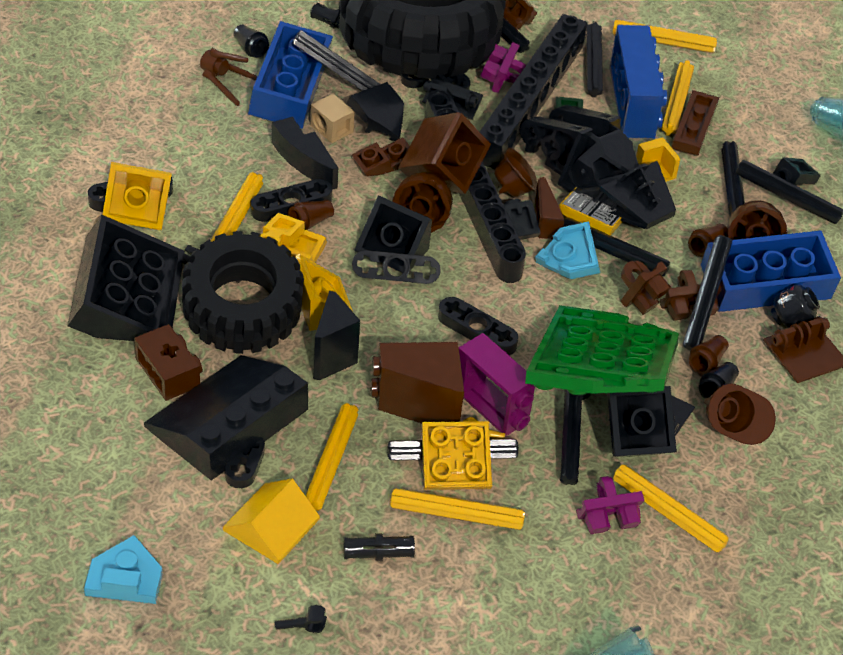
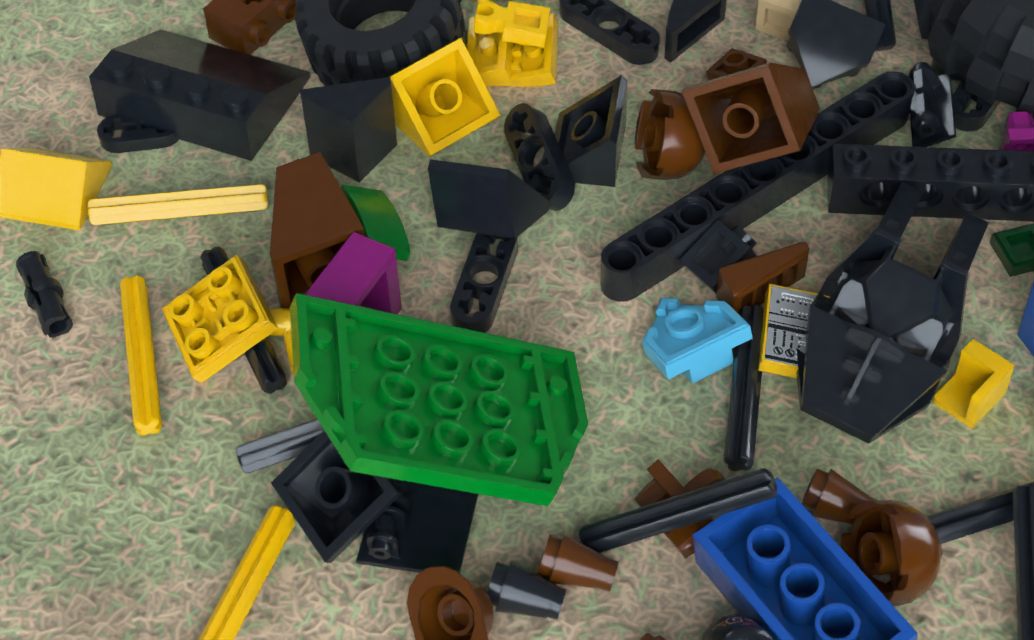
camera: 75 degrees right, 5 degrees up
(311, 212) = (587, 45): reddish brown cone -> none
(436, 298) = (483, 199): none -> black slope
(515, 174) = (819, 215): reddish brown piece -> none
(596, 510) = (206, 512): magenta hips -> none
(646, 288) = (655, 436): reddish brown hips -> none

